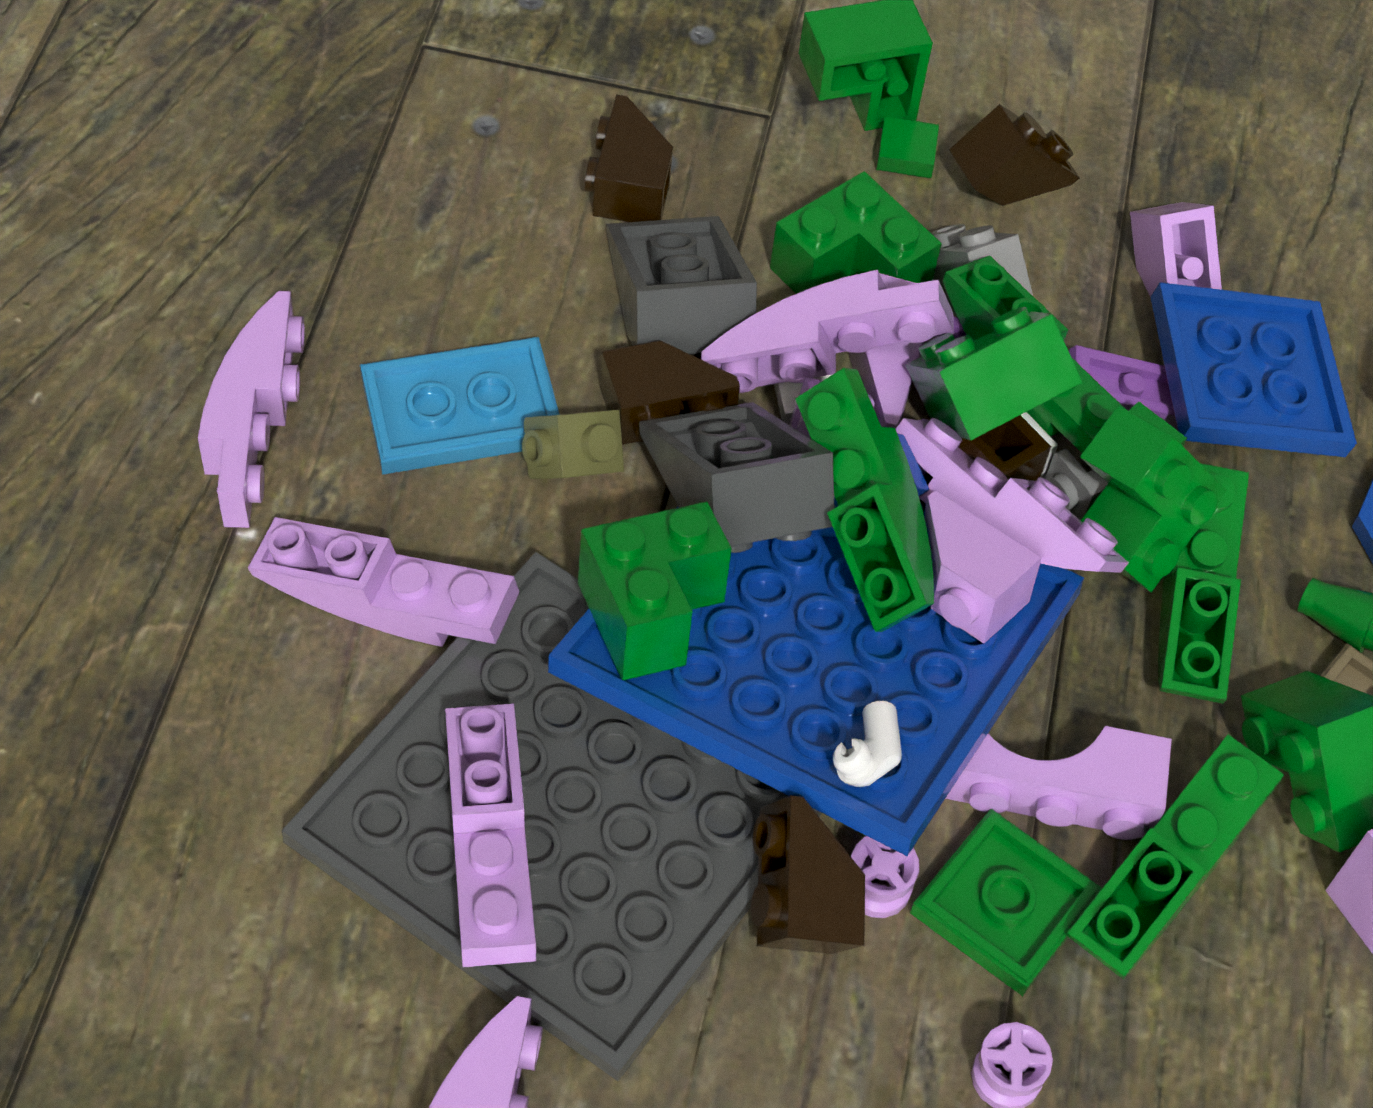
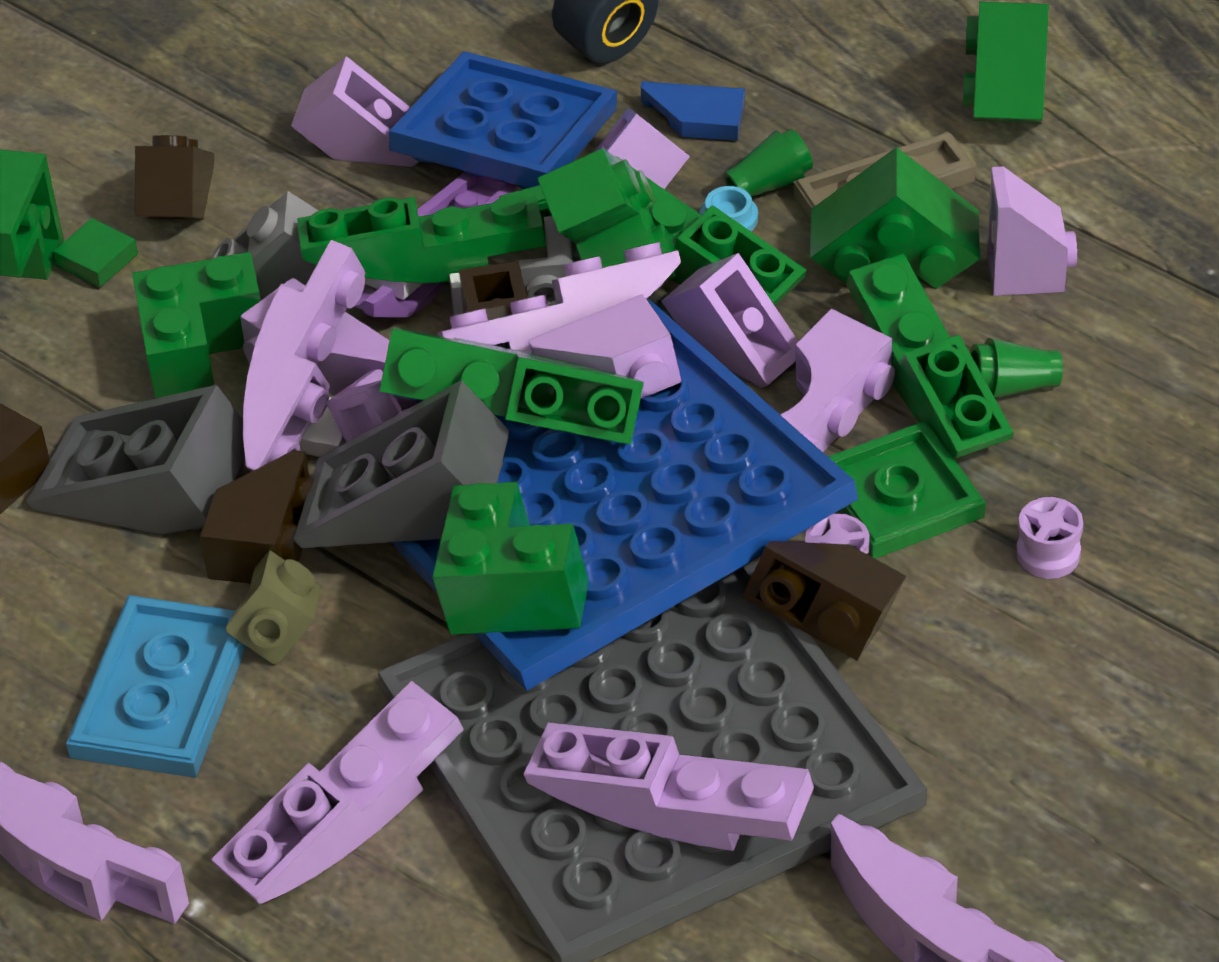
camera: 55 degrees left, 10 degrees down
(877, 753) = (762, 469): white arm -> none
(996, 377) = (443, 258): green brick -> none
(1120, 664) = (734, 320): none -> lavender slope
(1220, 944) = (1016, 367): none -> green cone
(1268, 605) = (734, 203): none -> medium azure plate
(1290, 499) = (644, 148): none -> lavender panel

